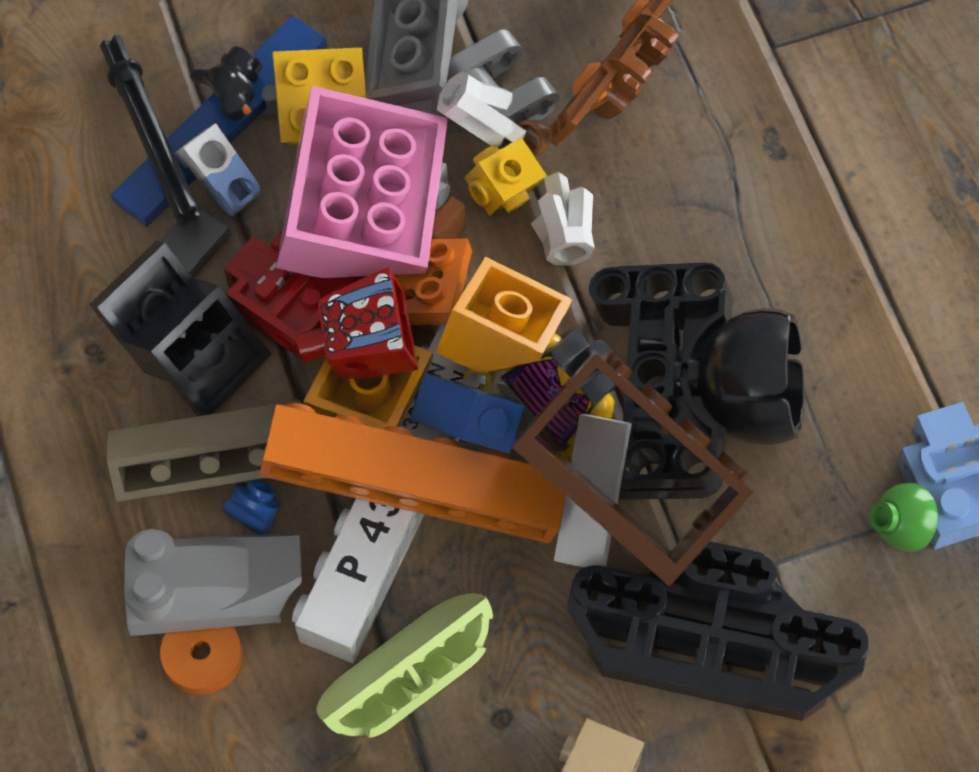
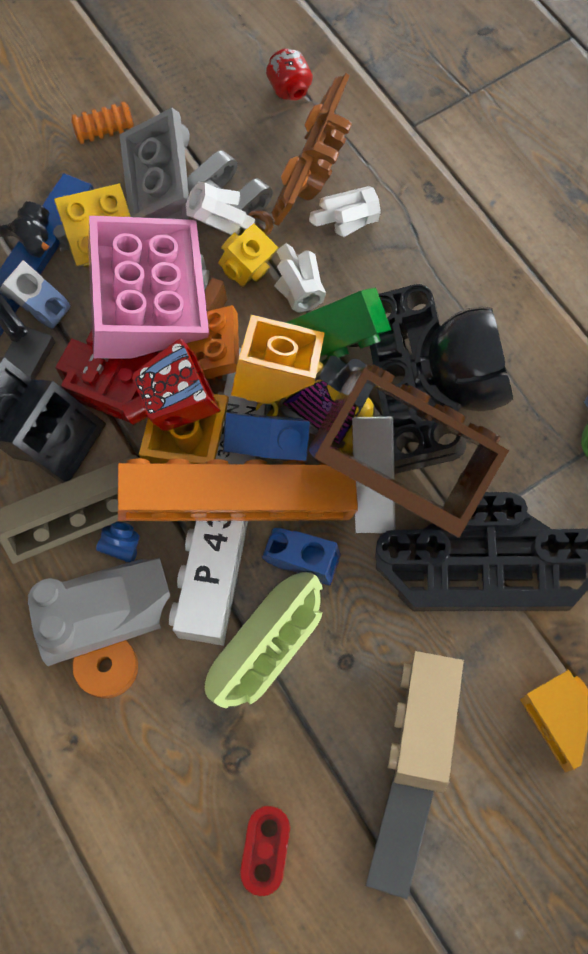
camera: 10 degrees left, 5 degrees up
(481, 570) = (302, 553): none -> blue leg
(605, 293) = (347, 322): none -> green brick
(651, 145) = (348, 209): none -> white rock

